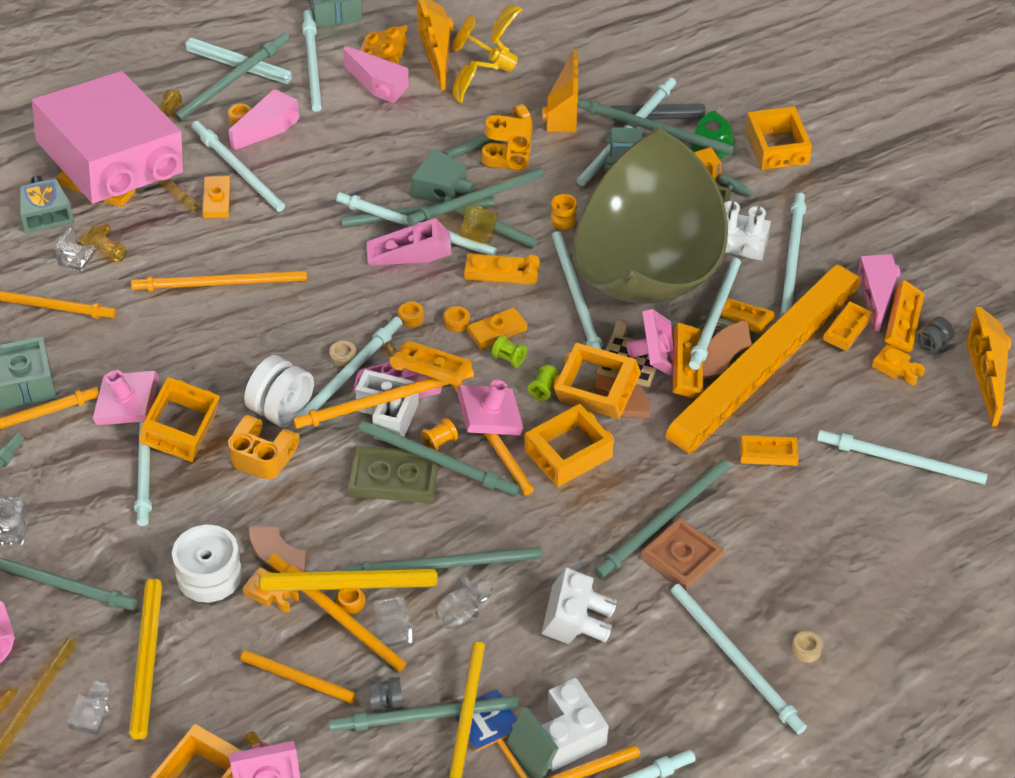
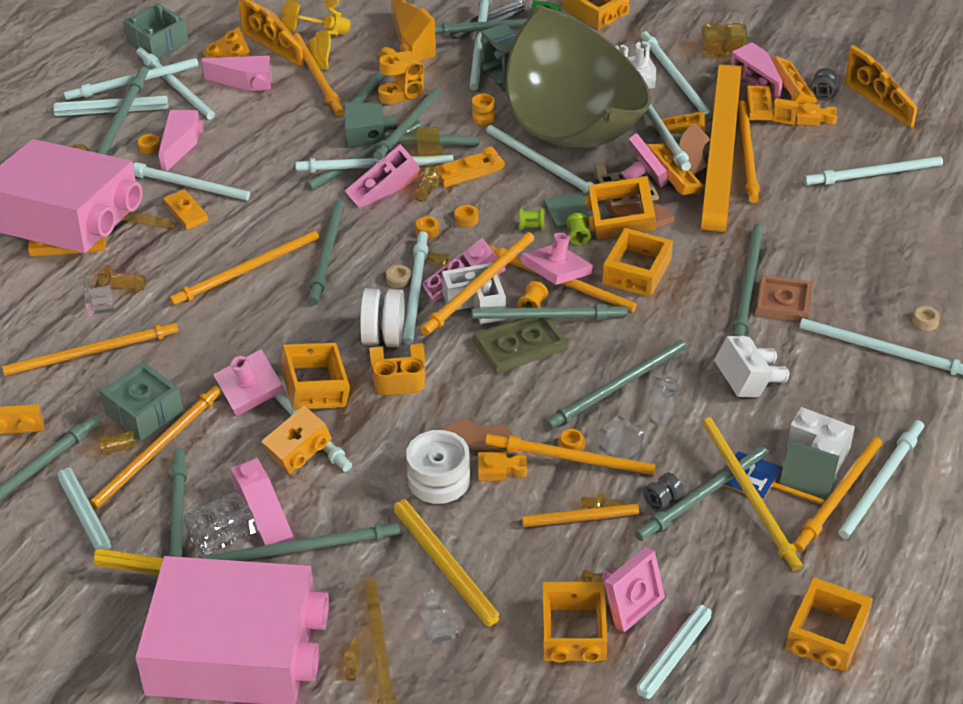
camera: 30 degrees left, 5 degrees down
(40, 520) = (257, 492): none -> bright pink slope
(44, 205) = (38, 272): sand green torso -> none
(114, 475) = (296, 440): none -> light orange brick
(233, 36) = (88, 90): none -> light aqua bar
(267, 325) = (318, 281): none -> sand green bar
(326, 673) = (599, 501): none -> clear yellow helmet
(348, 580) = (561, 426): yellow axle -> none
(431, 362) = (498, 240): light orange plate -> none
(436, 136) = (331, 97): none -> light orange bar
(447, 266) = (427, 181): none -> clear yellow cone
(489, 329) = (504, 209): light orange plate -> none
(553, 353) = (563, 206): none -> sand green piece
(757, 417) = (752, 187): none -> light orange bar
(768, 450) = (781, 204): light orange plate -> none
(863, 347) = (785, 111): none -> light orange tile
(872, 237) = (722, 40): none -> clear yellow brick

